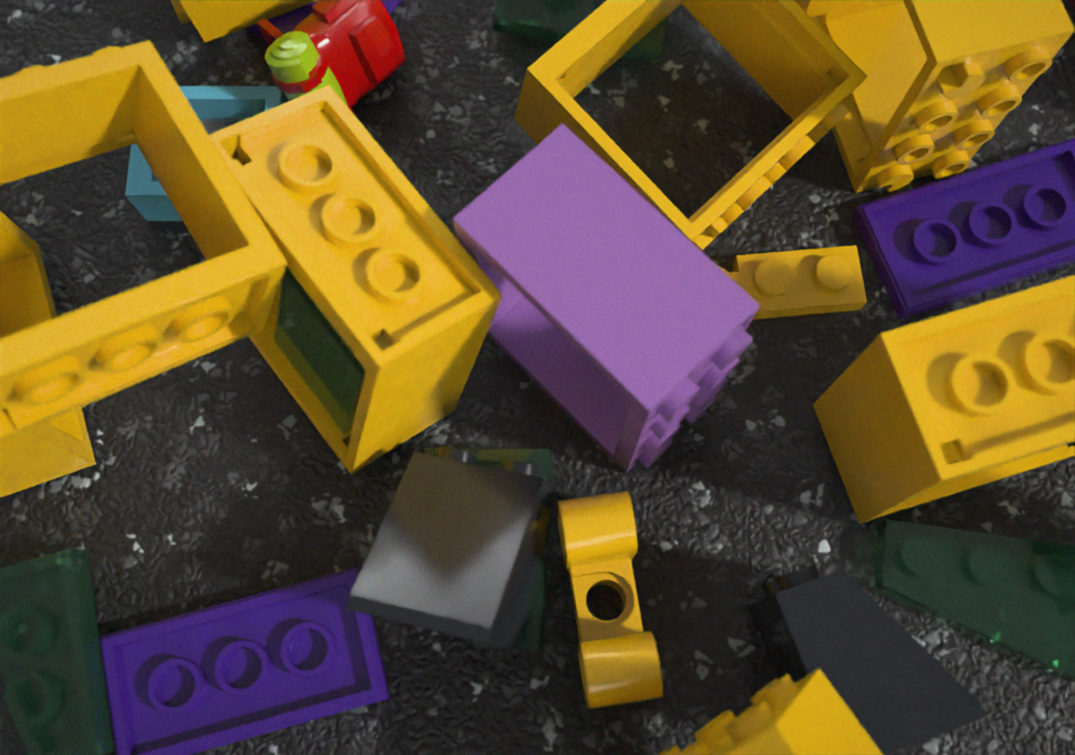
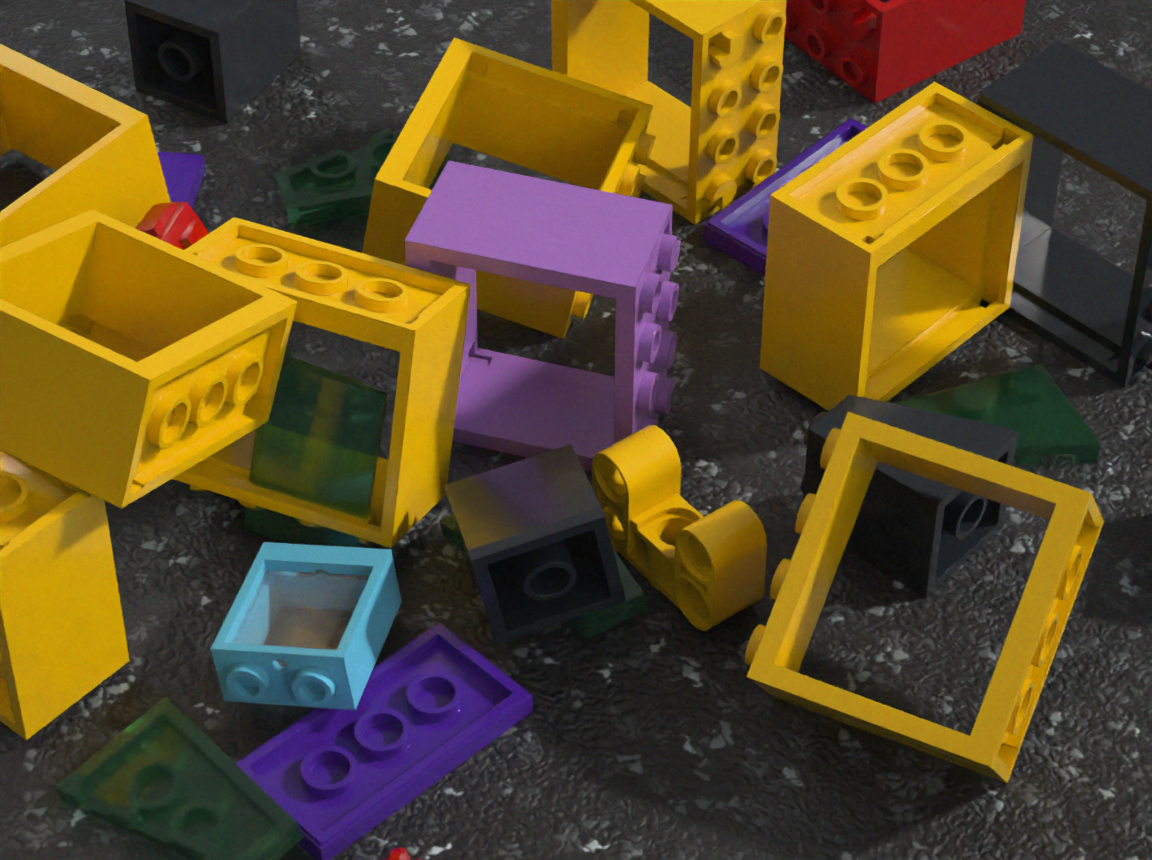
camera: 30 degrees left, 30 degrees down
(227, 532) = (305, 631): none -> medium azure window
(801, 281) = (705, 291): yellow plate -> none

